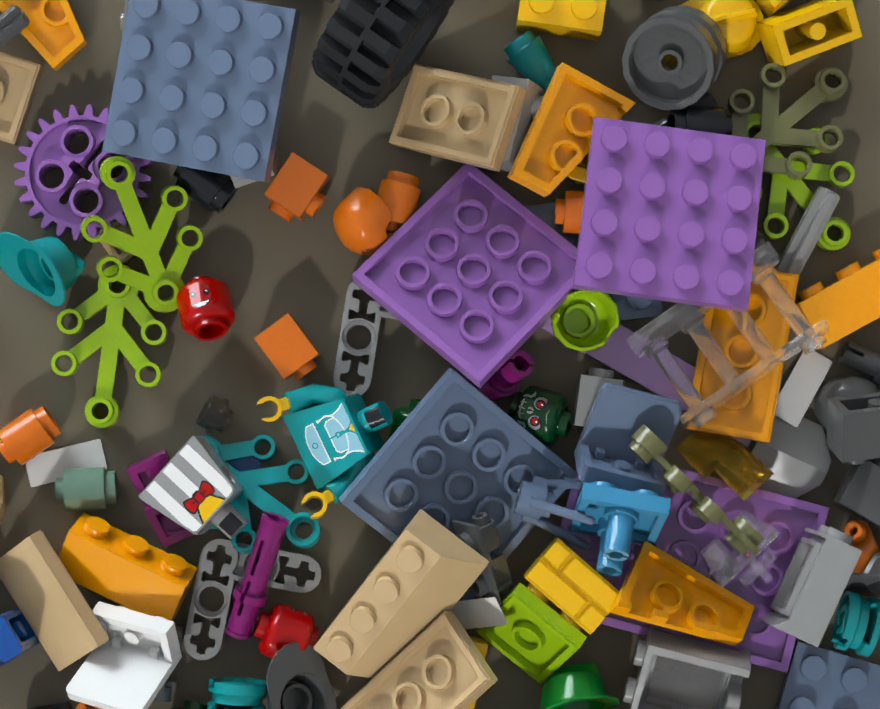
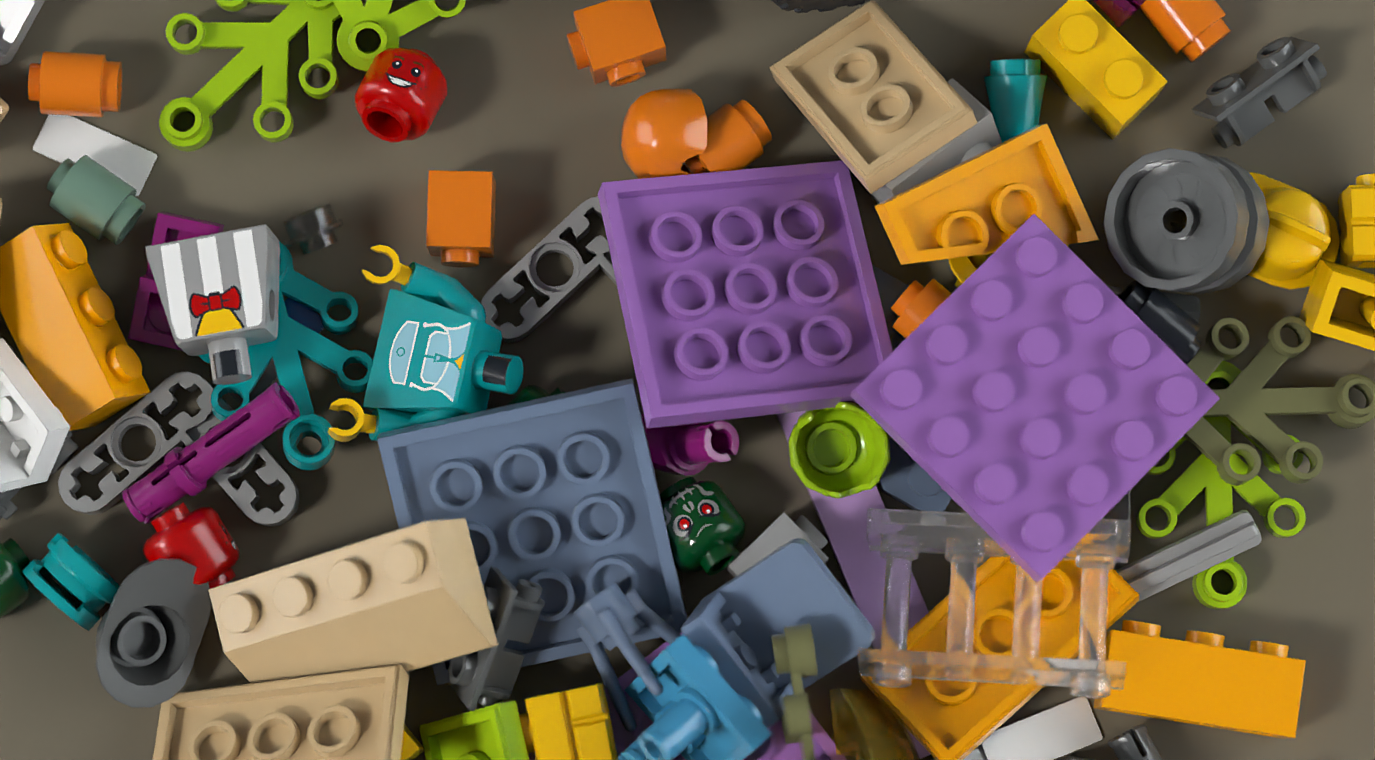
camera: 40 degrees right, 5 degrees down
(479, 613) = (438, 703): white sticker -> none

